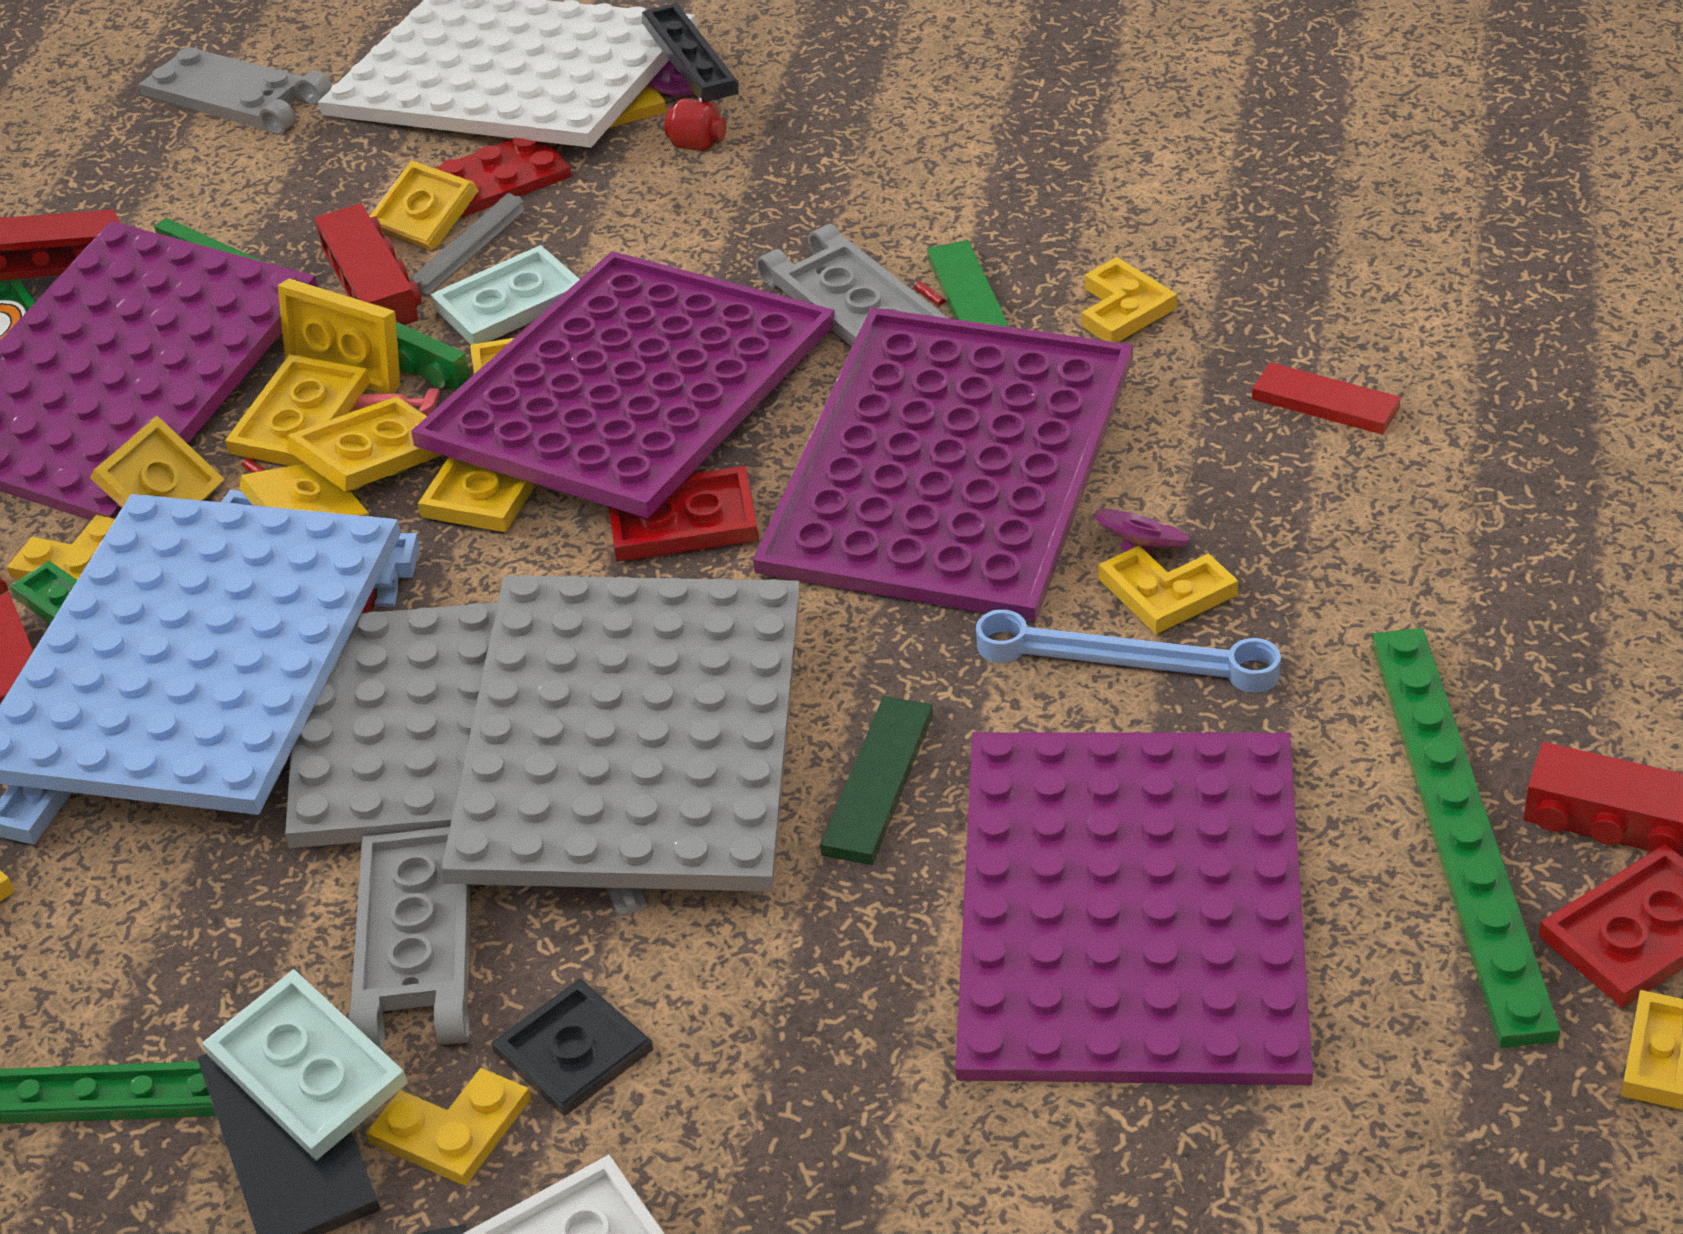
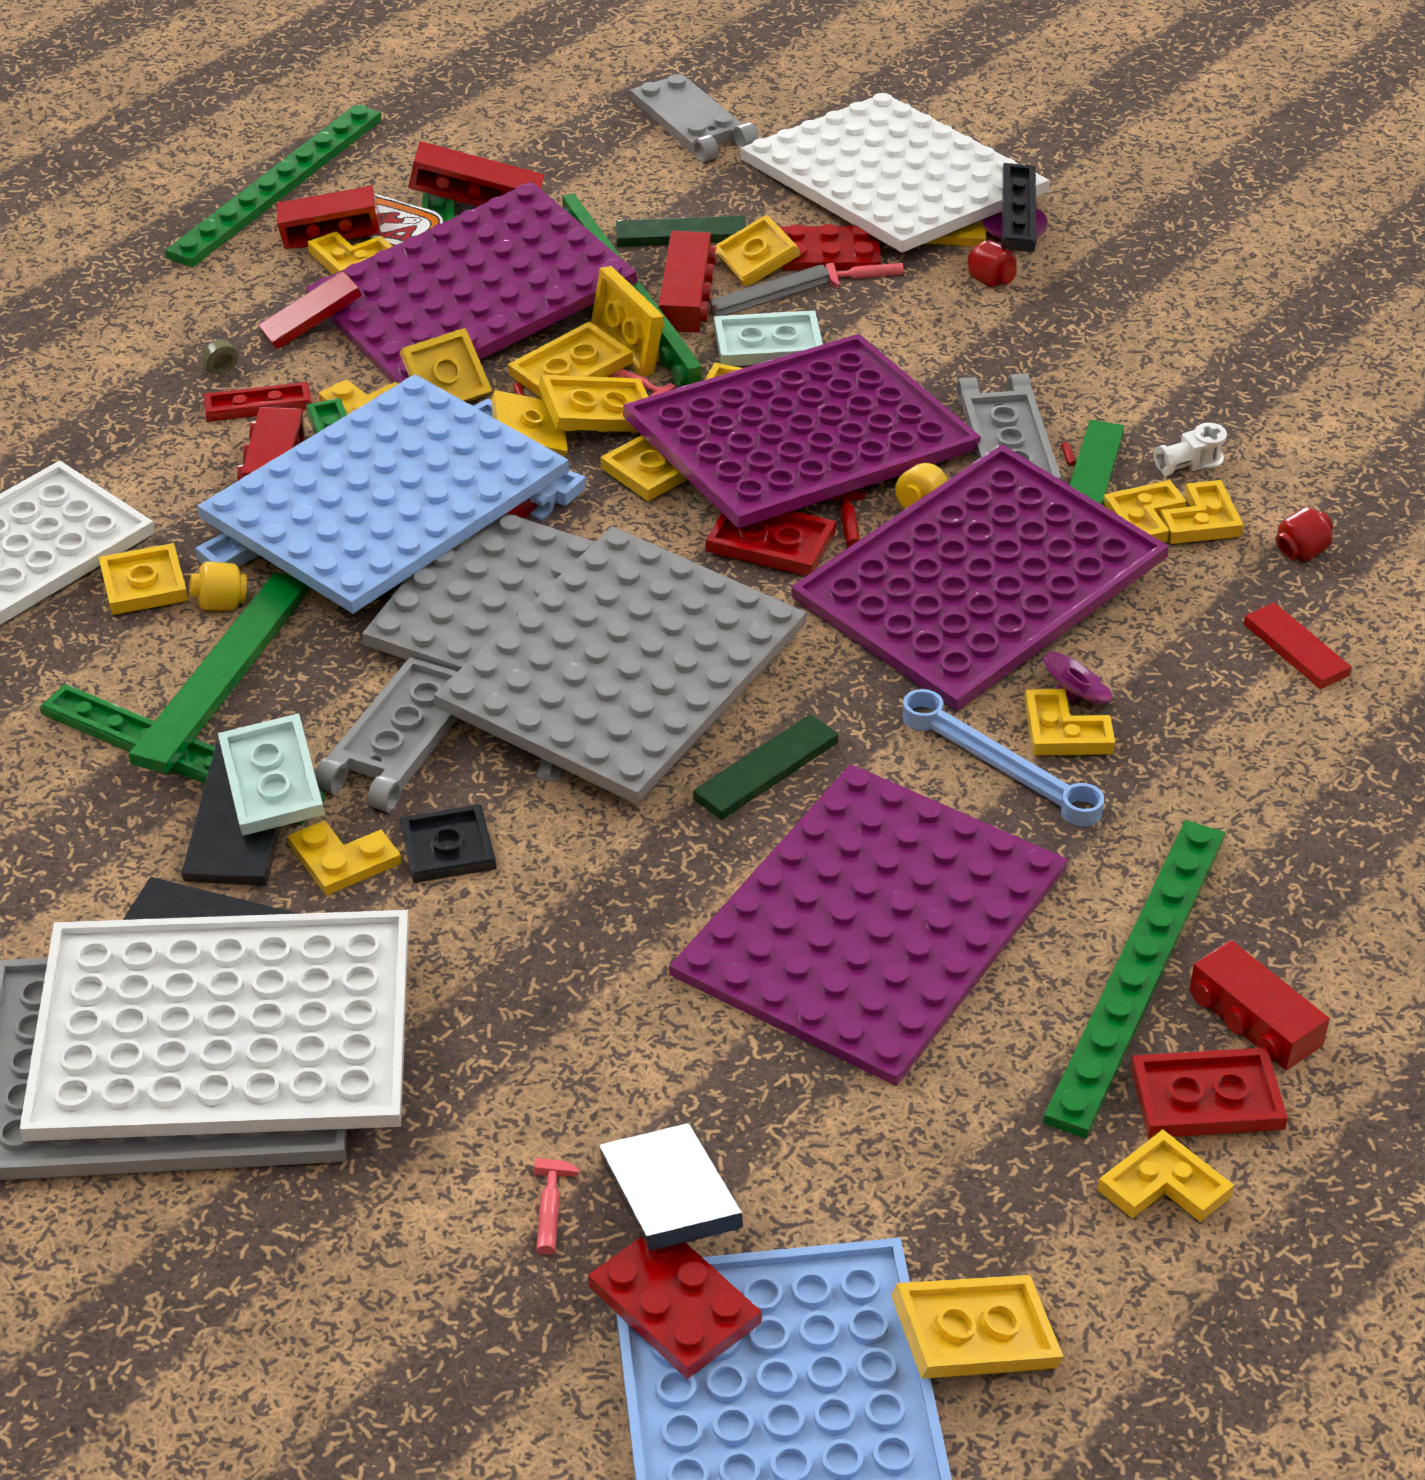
camera: 25 degrees right, 0 degrees up
(49, 856) = (218, 586): none -> yellow head
(127, 971) = (218, 674): none -> green tile
(299, 222) = (658, 231): none -> dark green tile
(558, 185) = (862, 272): none -> coral piece
(753, 460) = (849, 516): none -> red piece
(807, 390) = (918, 483): none -> yellow head
(1061, 312) = (1144, 505): none -> yellow plate
(1064, 237) = (1193, 450): none -> white connector
(1244, 279) = (1304, 534): none -> red head

